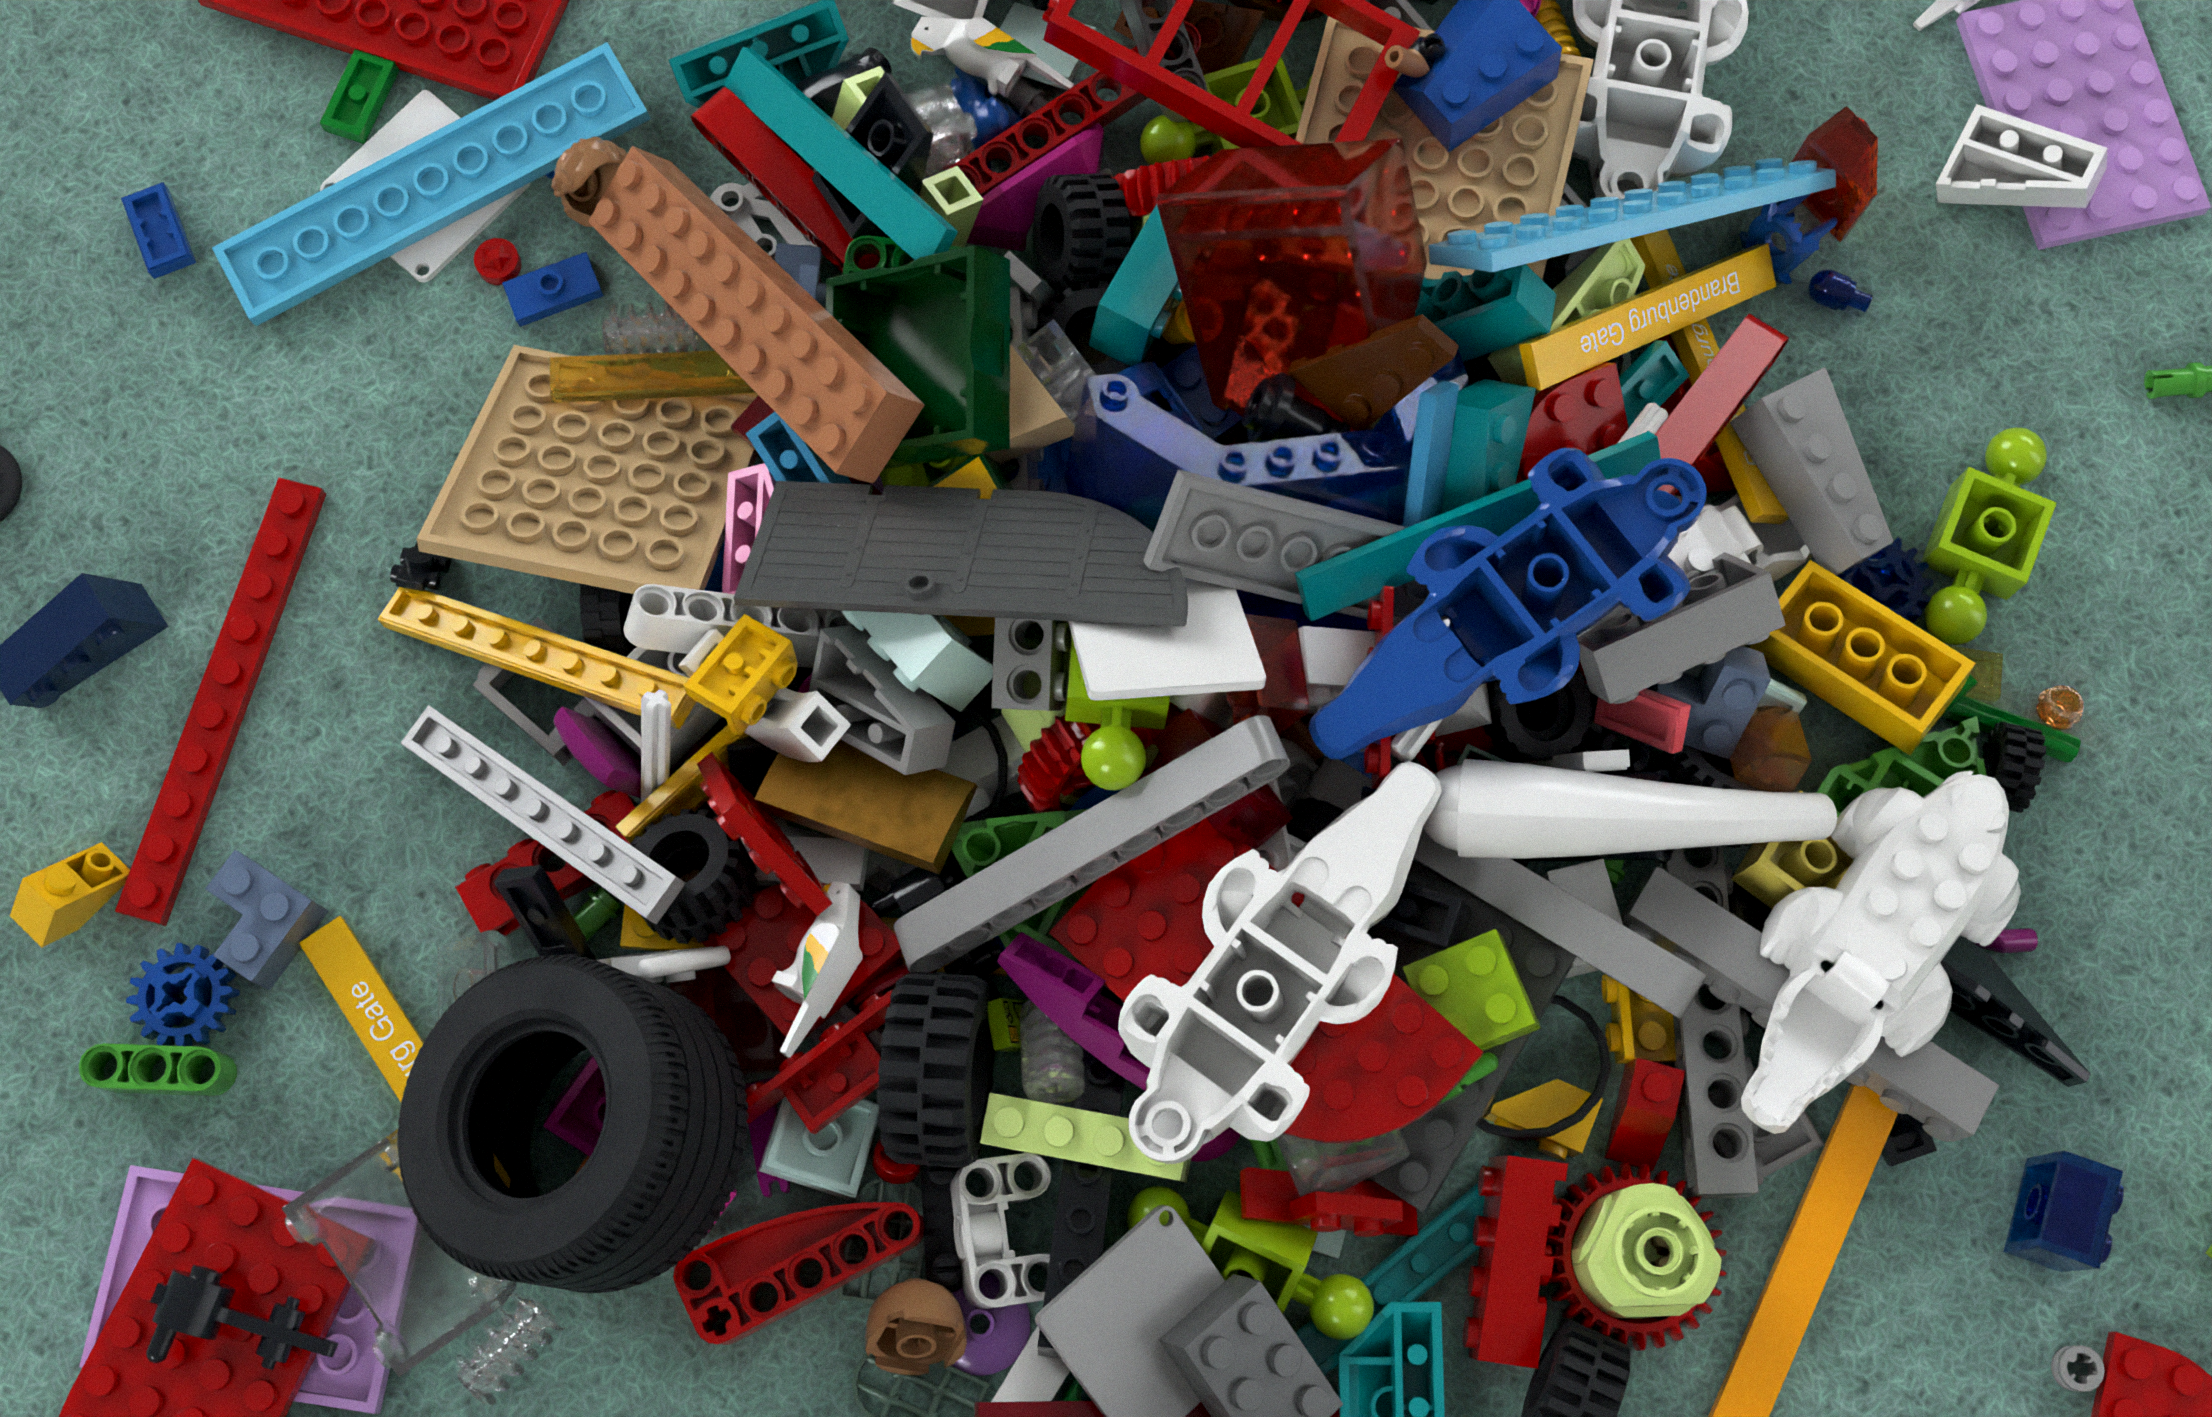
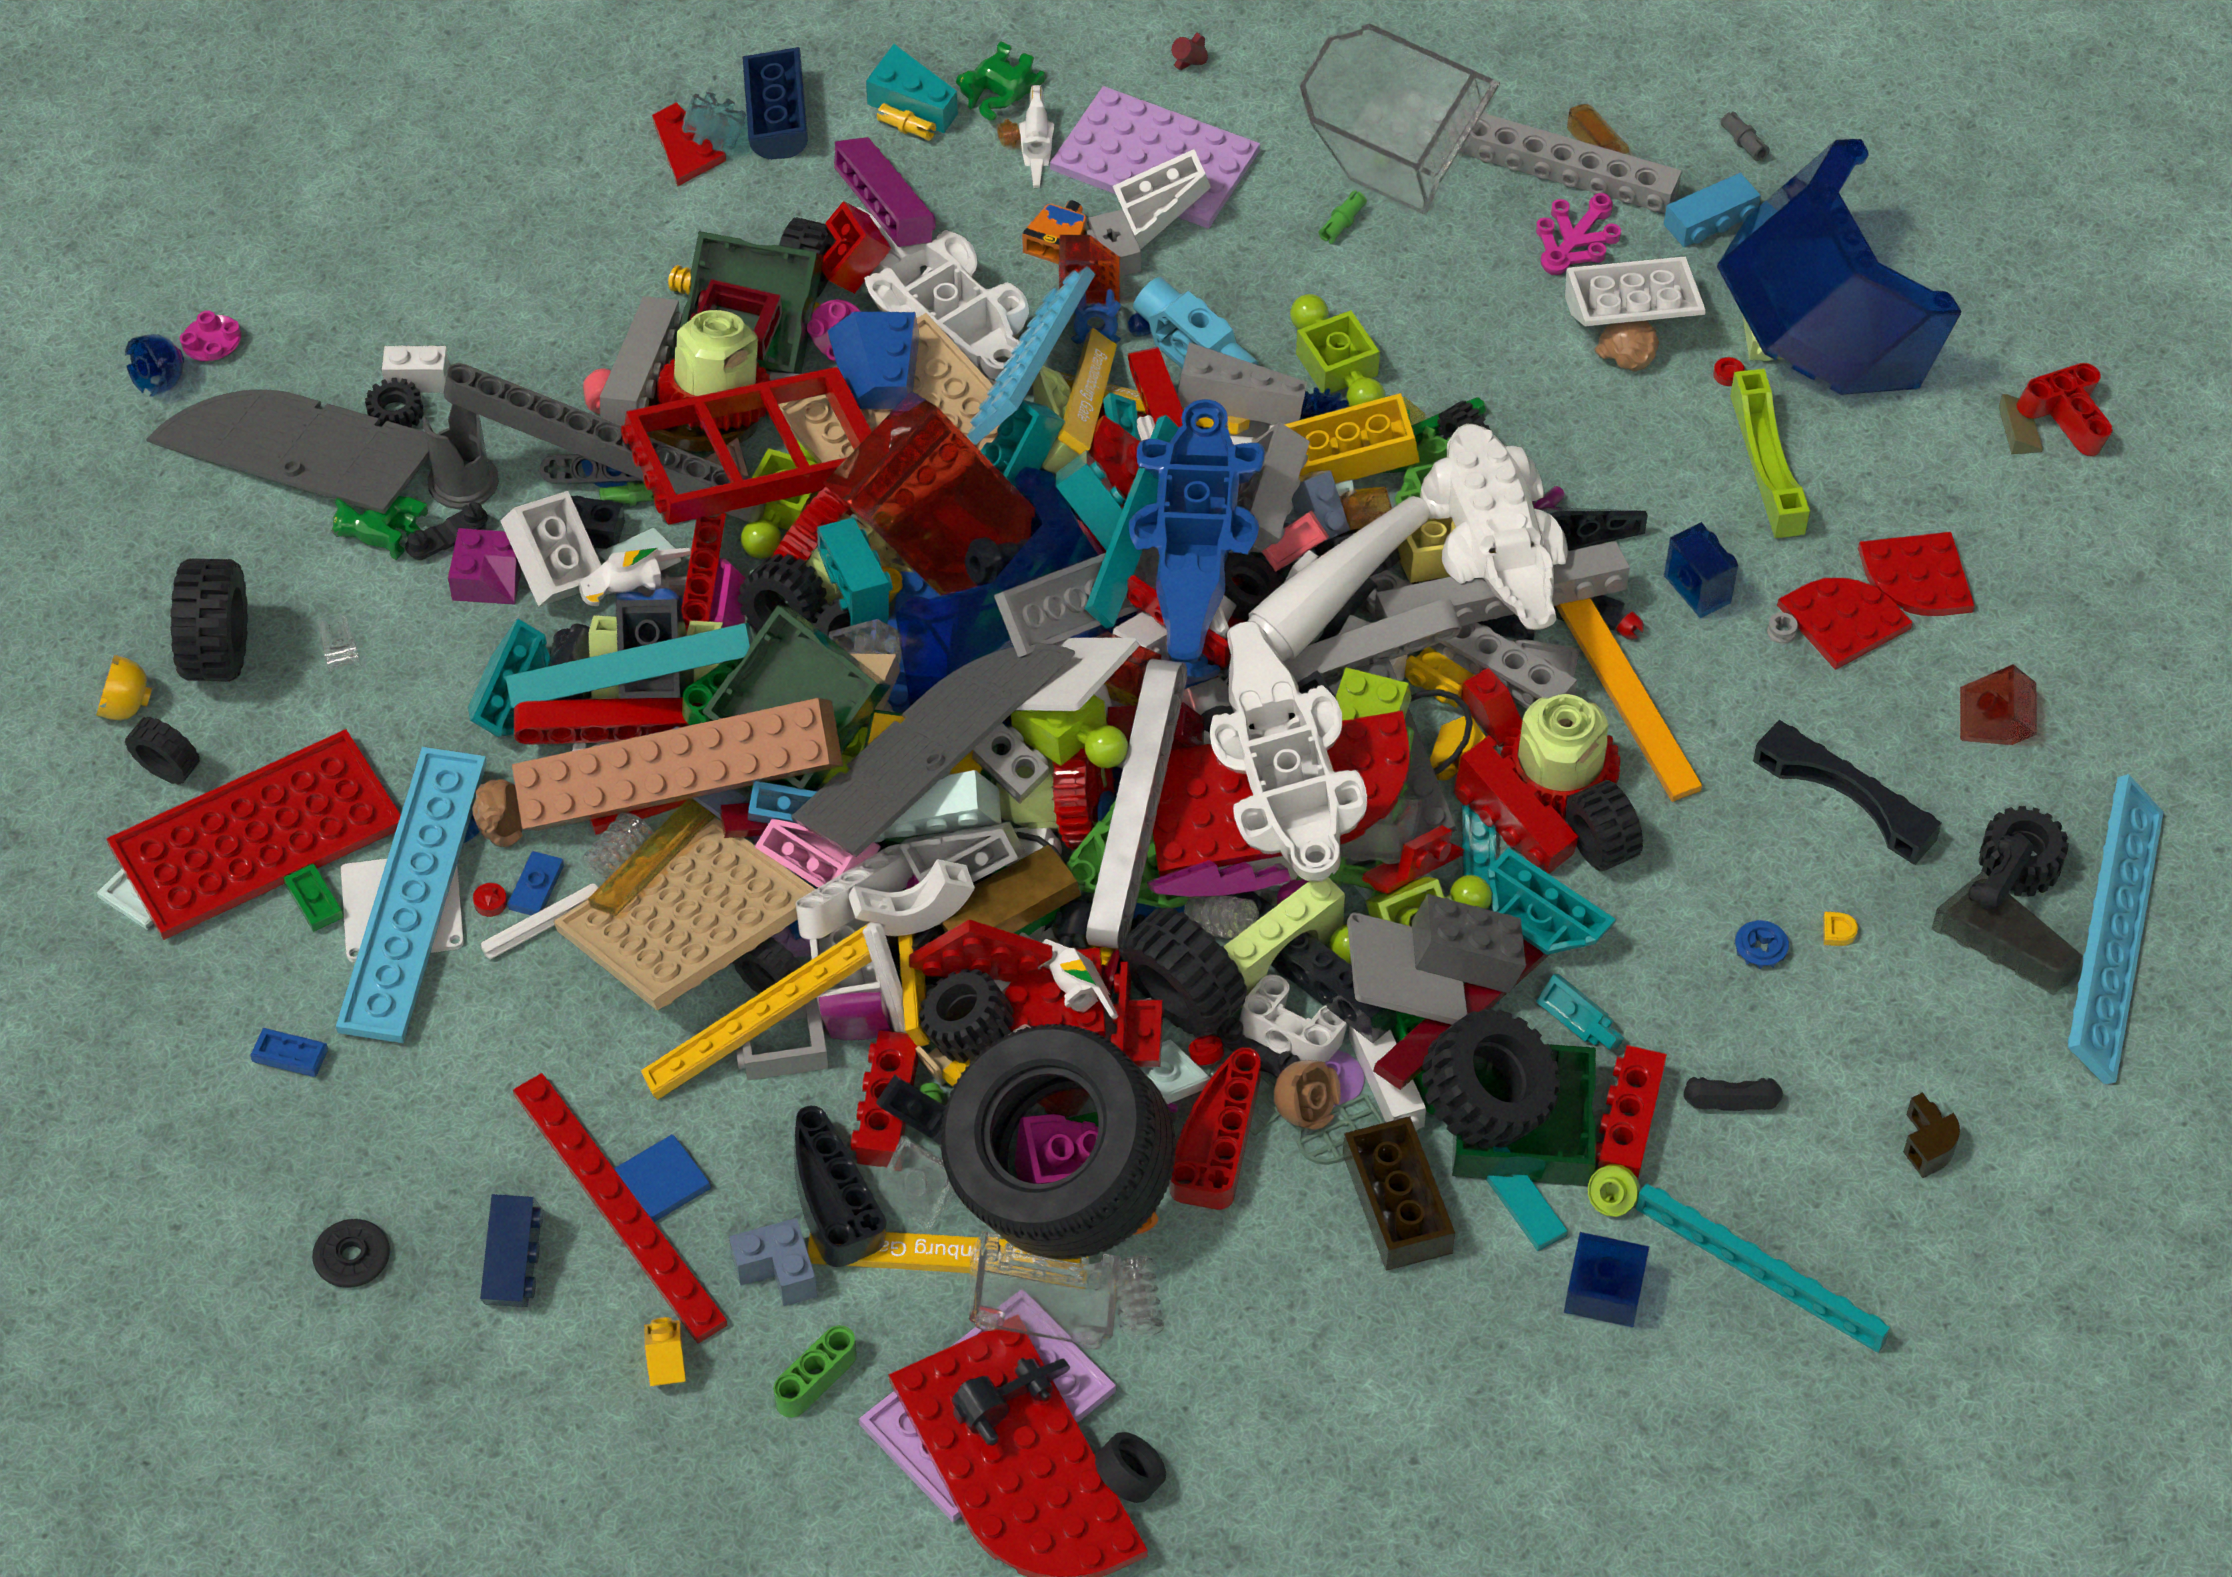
camera: 50 degrees left, 20 degrees down
(160, 999) = (765, 1336): blue gear -> none
(289, 713) = (663, 1177): none -> blue tile
(372, 899) = (831, 1202): none -> black beam
(419, 569) = (639, 1053): black piece -> none
(502, 330) = (534, 924): none -> white axle
(544, 815) = (859, 1063): plate -> none
(744, 673) = (890, 888): yellow bracket -> none
(1376, 373) = (1017, 501): reddish brown wing -> none
(1418, 58) = (851, 376): arm -> none
(1430, 452) = (1079, 511): dark azure tile -> none
(1858, 347) = (1183, 319): none -> medium azure brick
(1872, 92) = (1043, 233): none -> orange torso
(1911, 169) = (1116, 234): none -> light grey brick
(1912, 1178) = (1629, 625): none -> red hinge
(2064, 698) = (1453, 392): clear orange plate -> none

